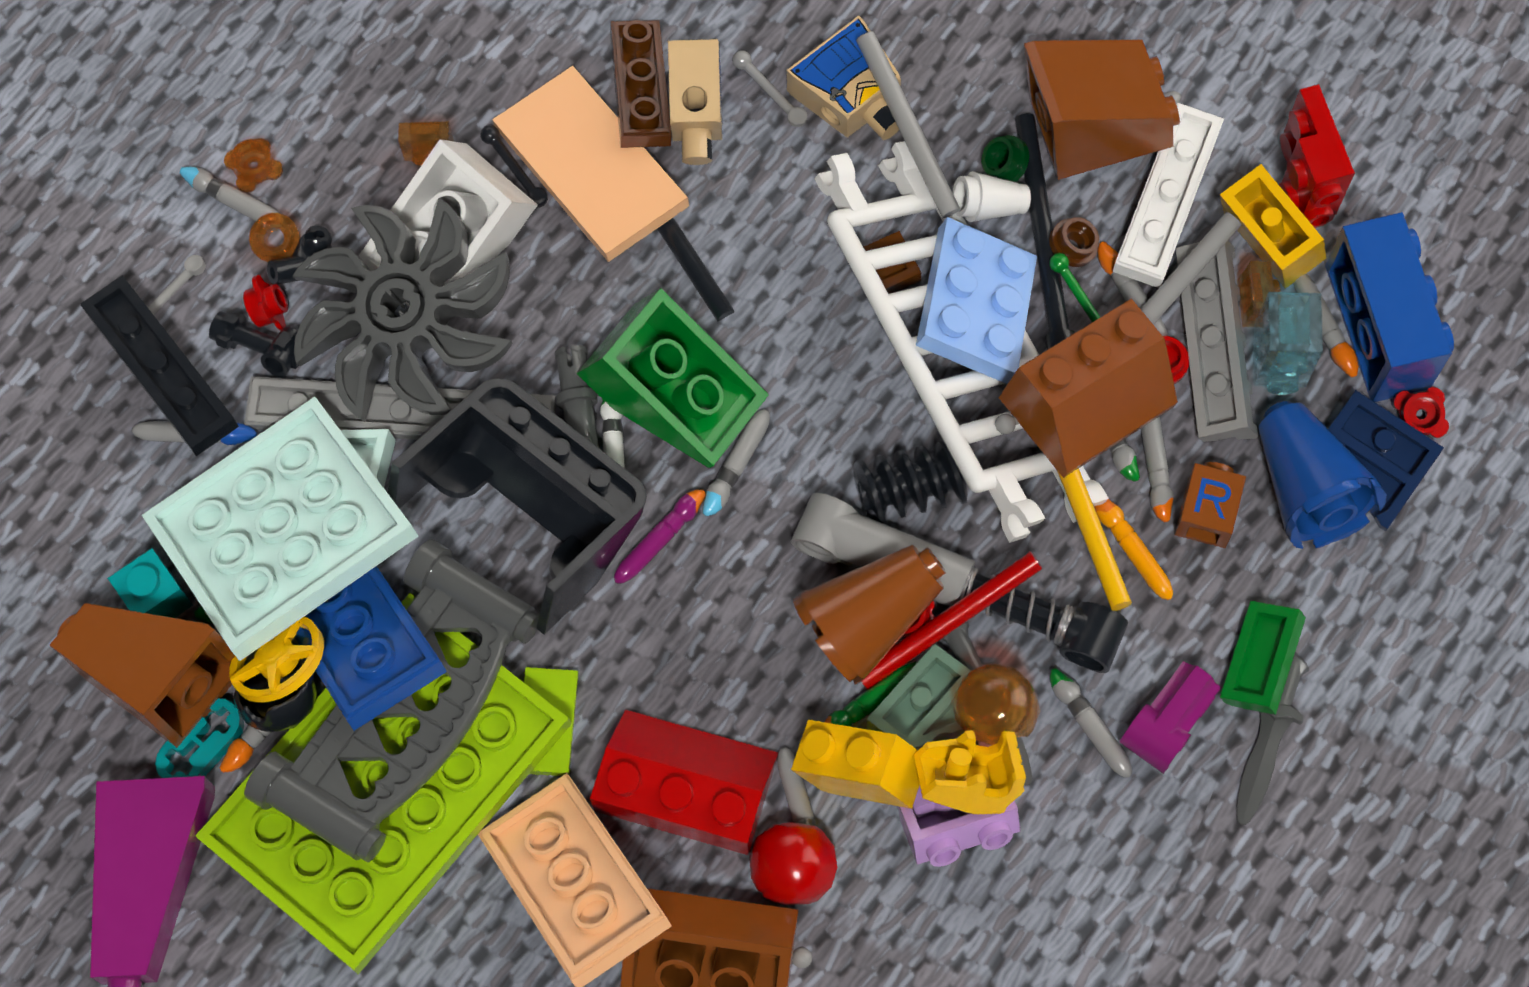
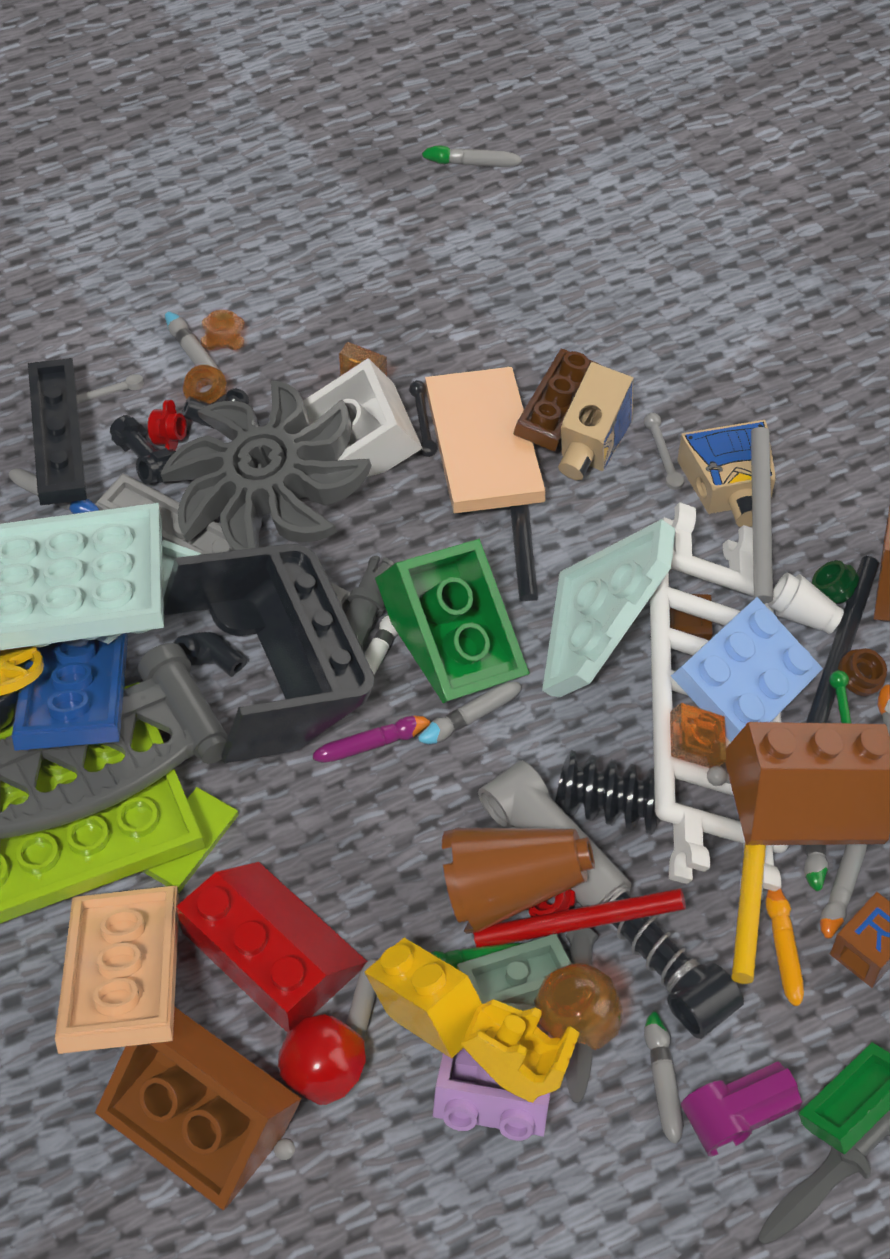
camera: 25 degrees right, 15 degrees down
(454, 521) = (211, 649): none -> black arm
(807, 297) = (600, 602): none -> light aqua plate
(970, 394) = (697, 736): none -> clear orange plate

